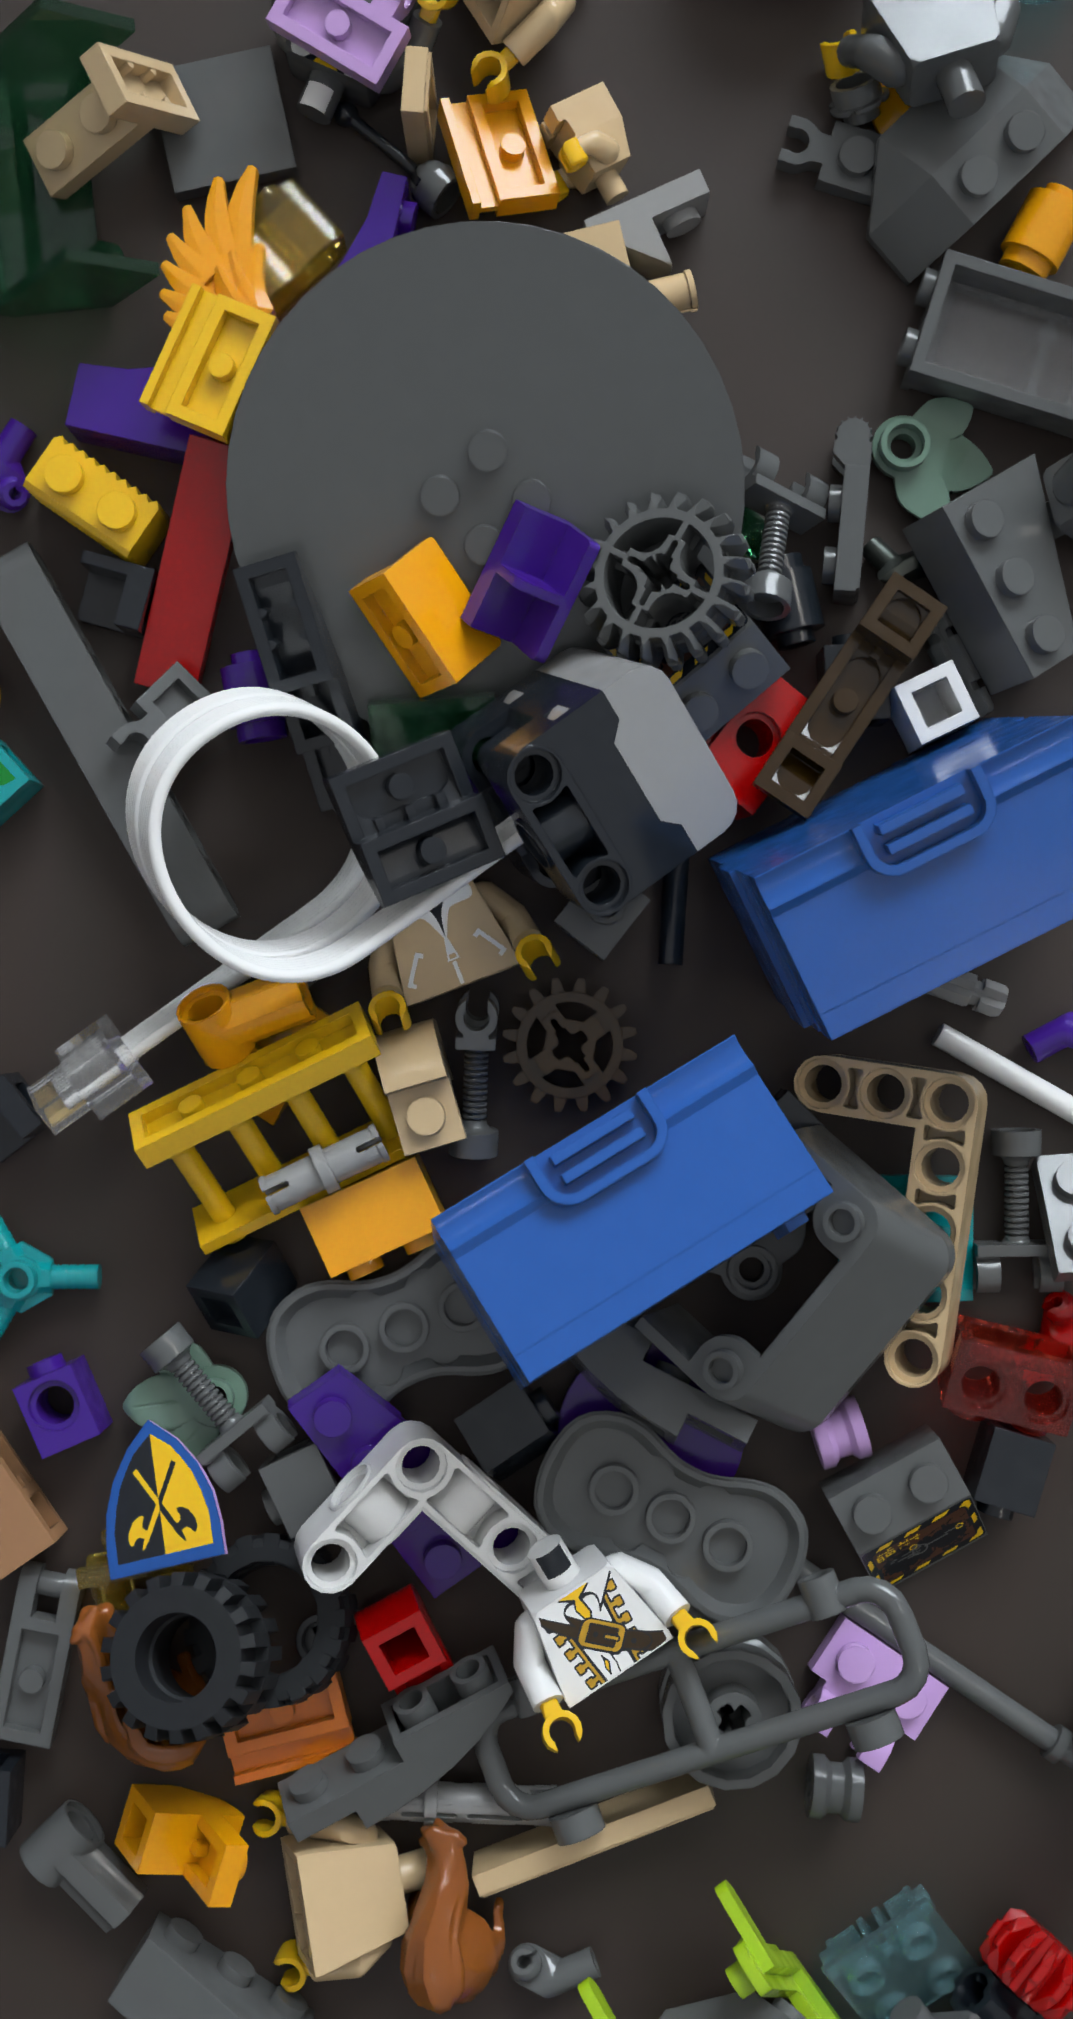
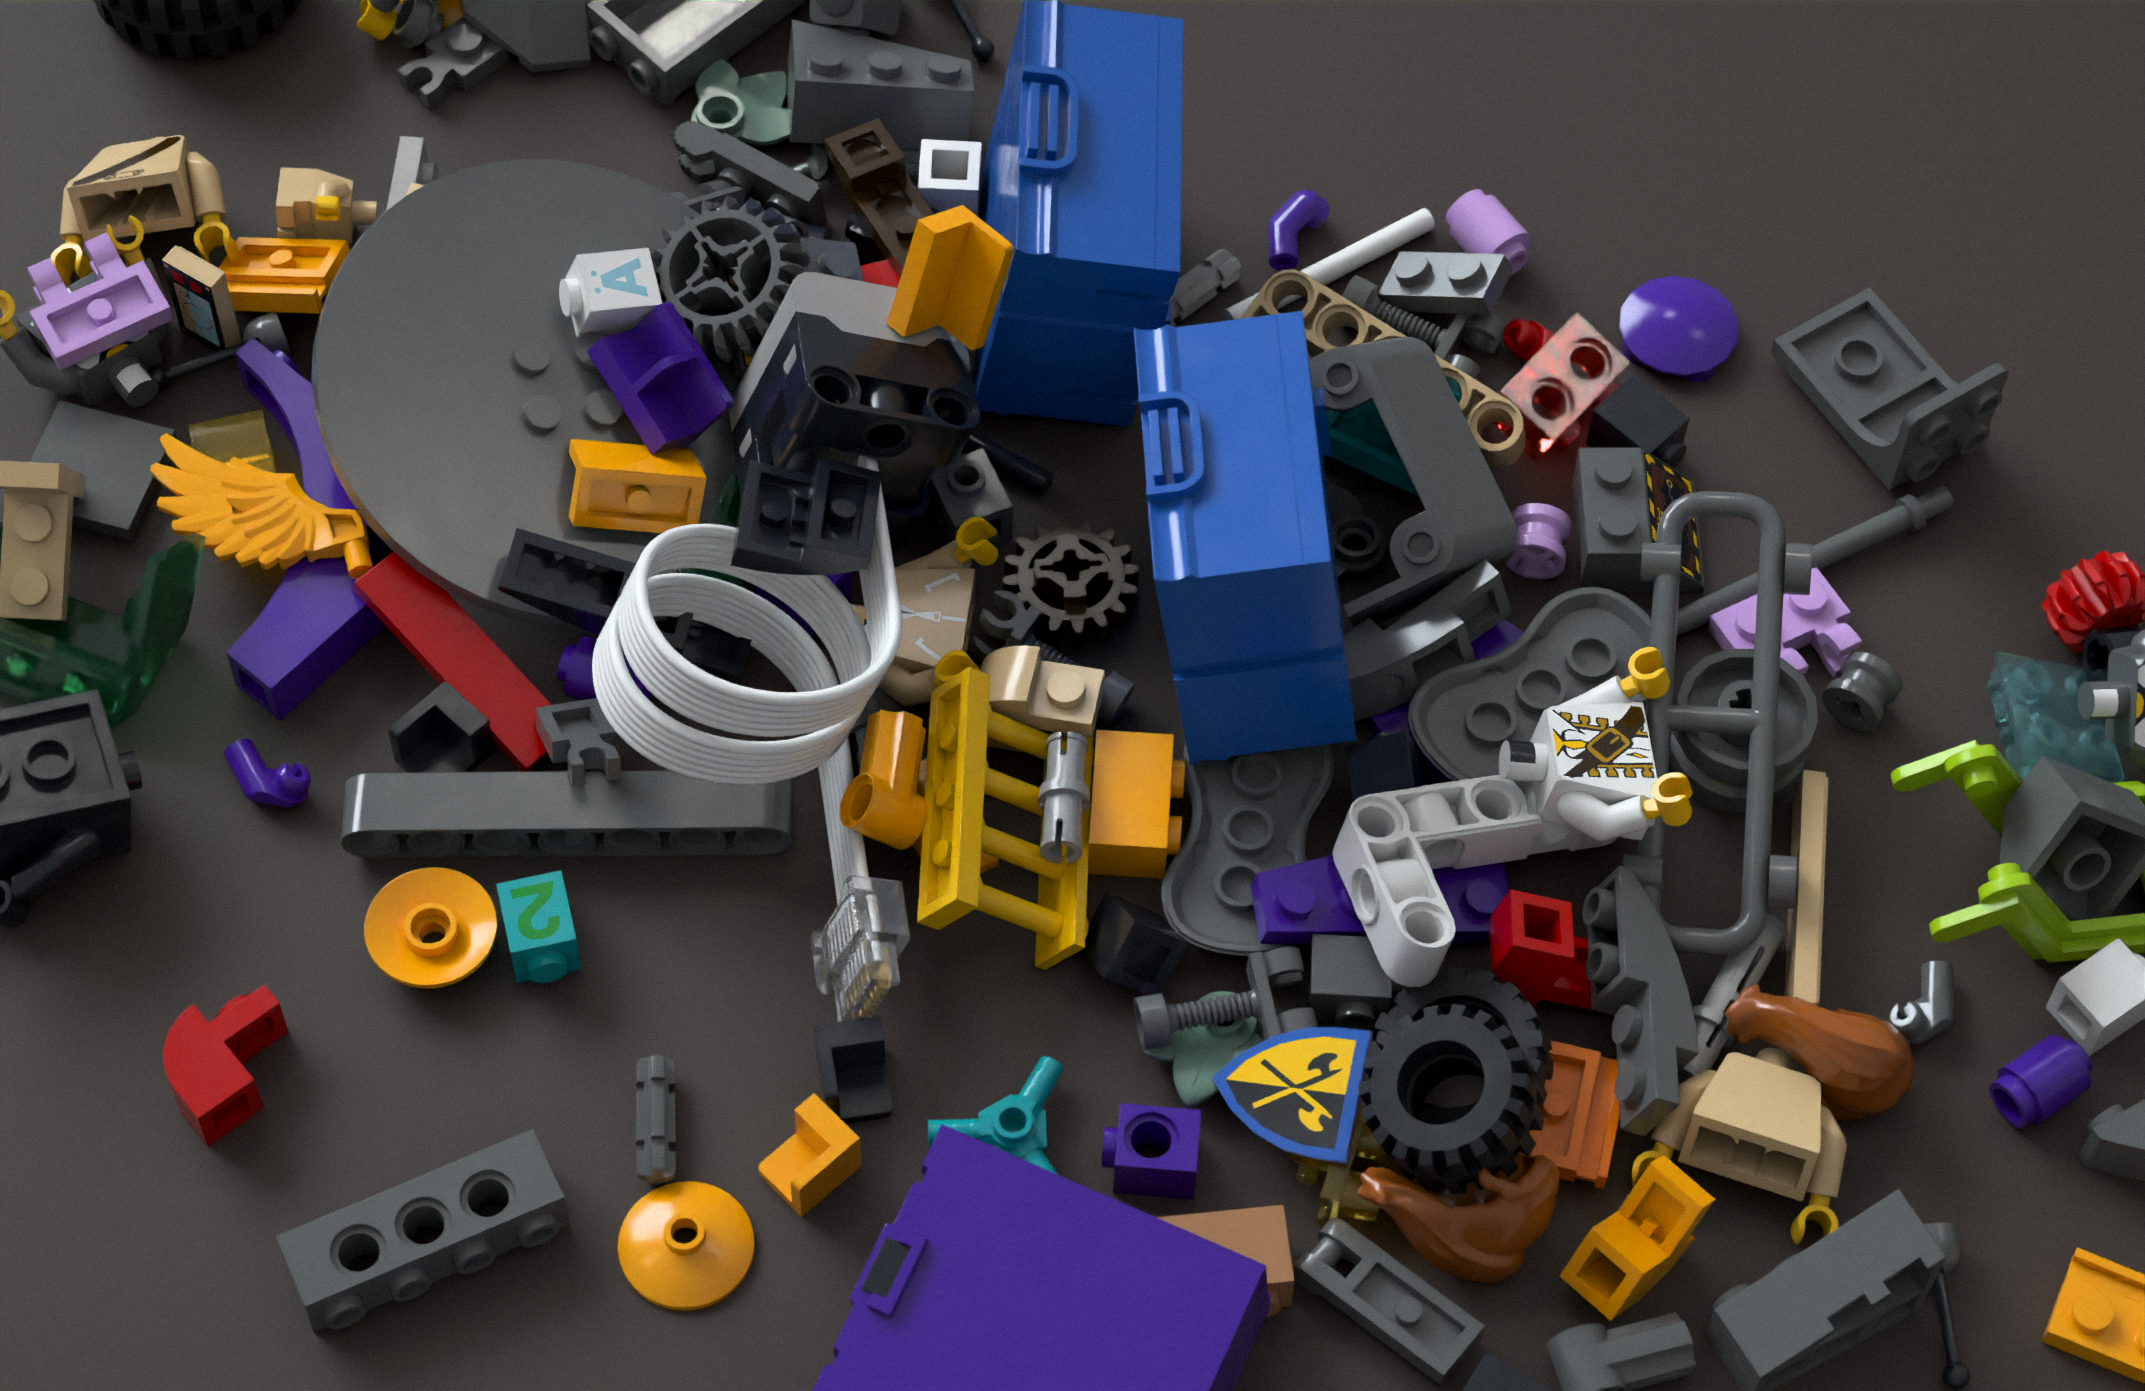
camera: 65 degrees left, 30 degrees down
(97, 502) = (349, 708): yellow brick -> none
(207, 362) = (312, 525): yellow plate -> none
(587, 483) = (609, 291): none -> white brick
(730, 816) = (951, 277): none -> light orange panel

